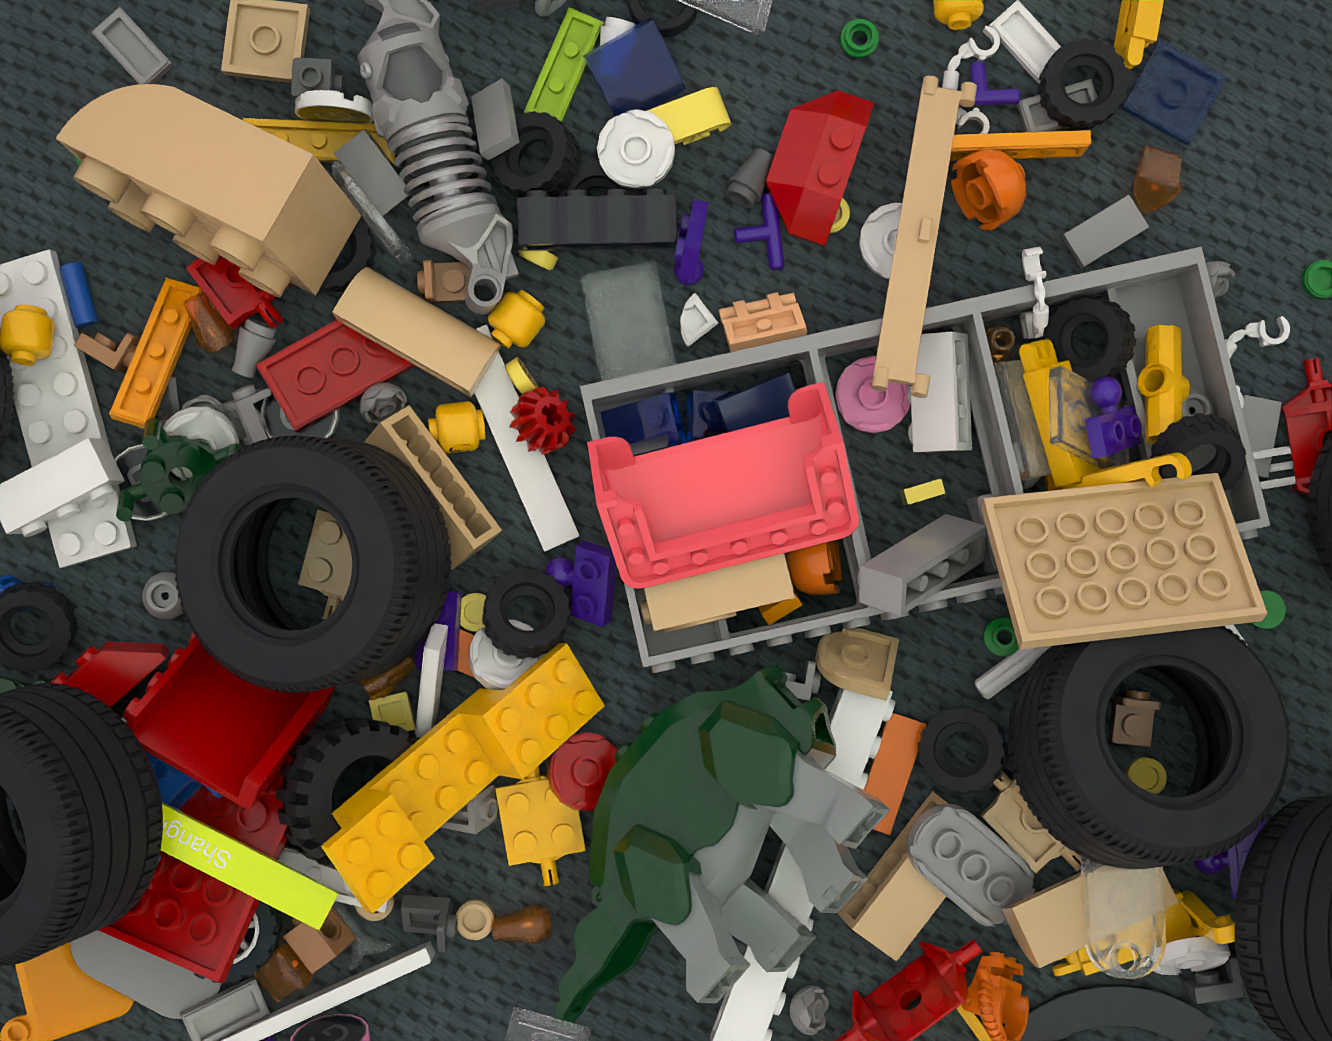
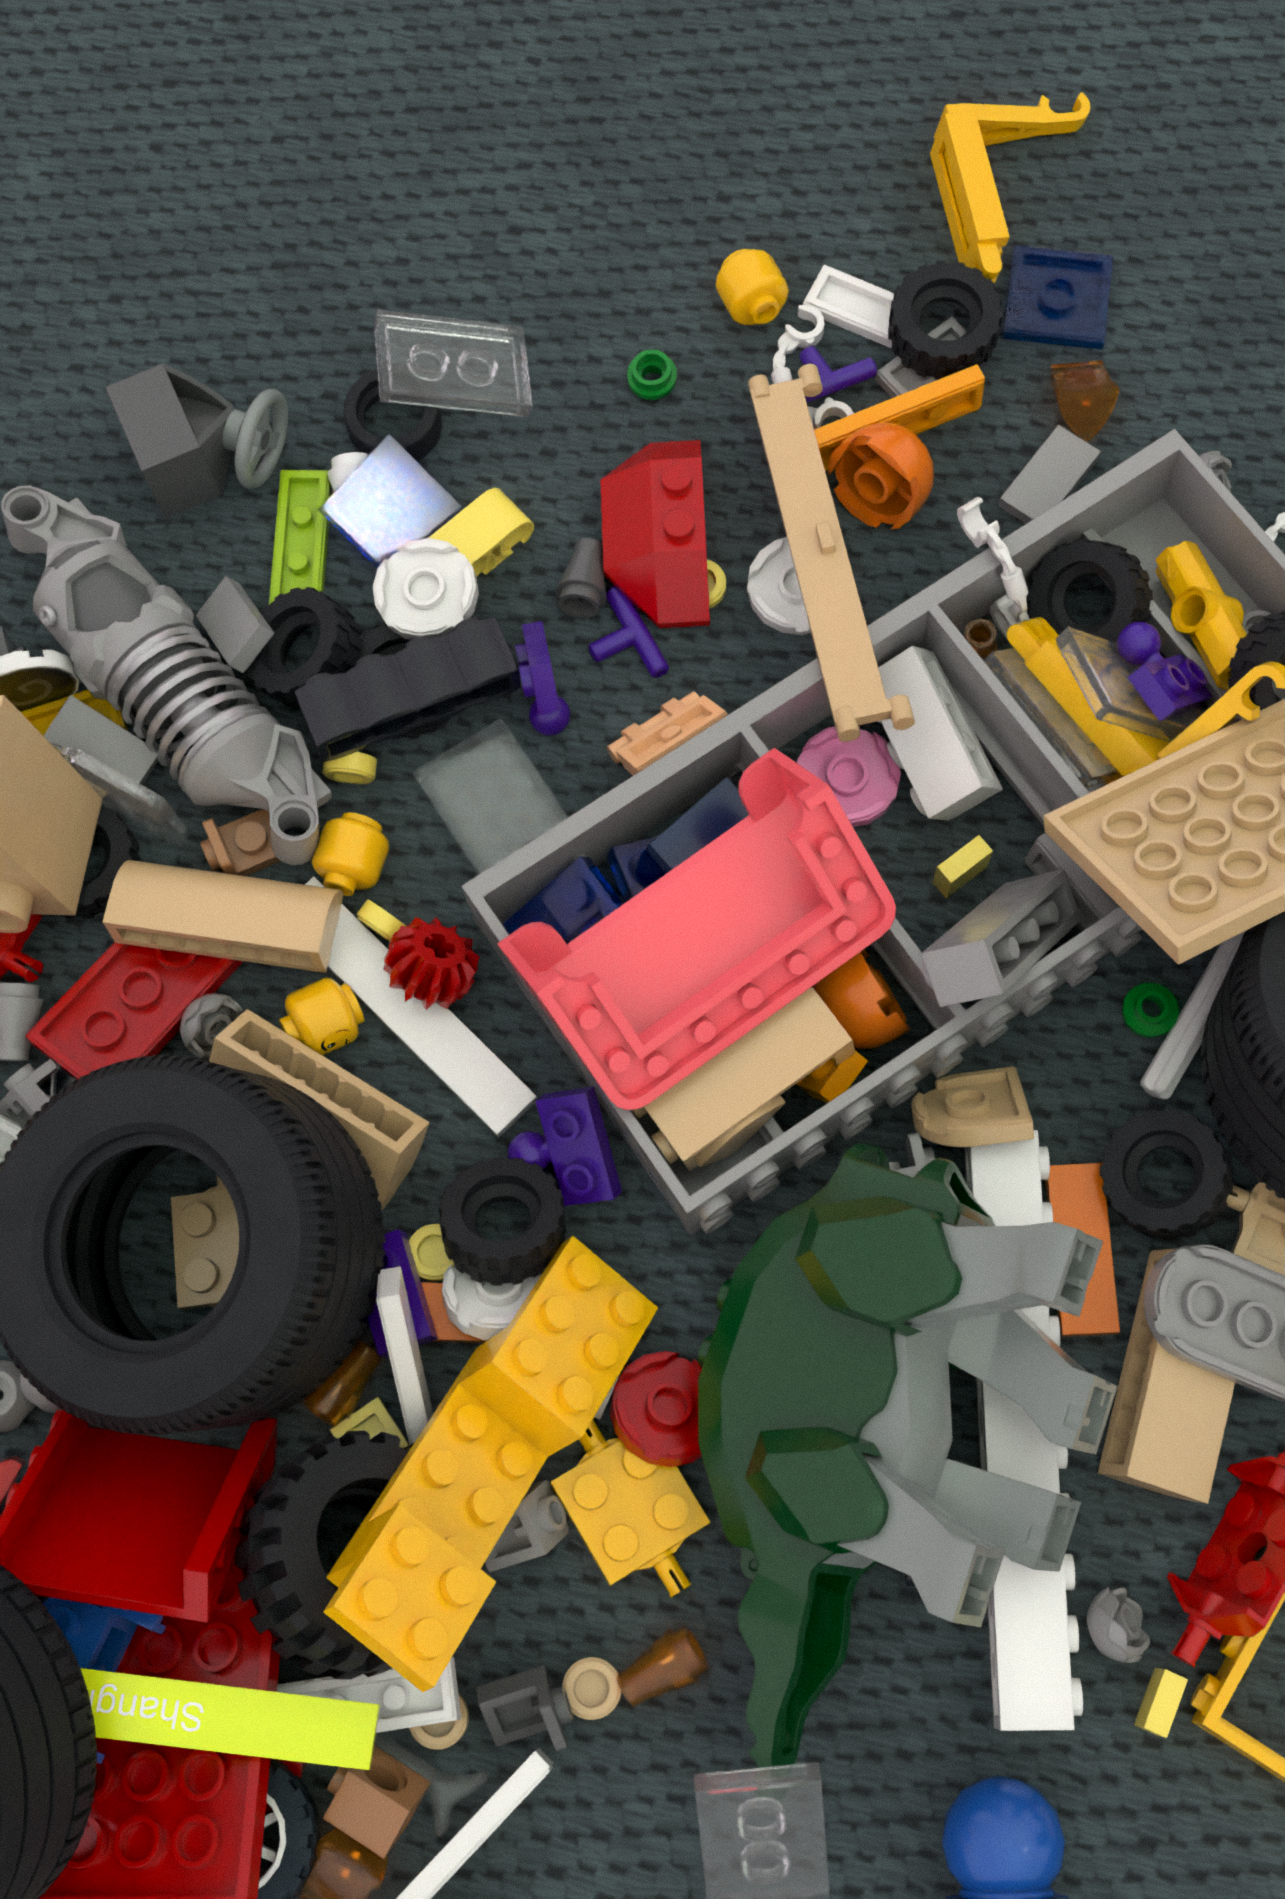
camera: 10 degrees left, 15 degrees down
(695, 320) = (583, 772): white tile -> none

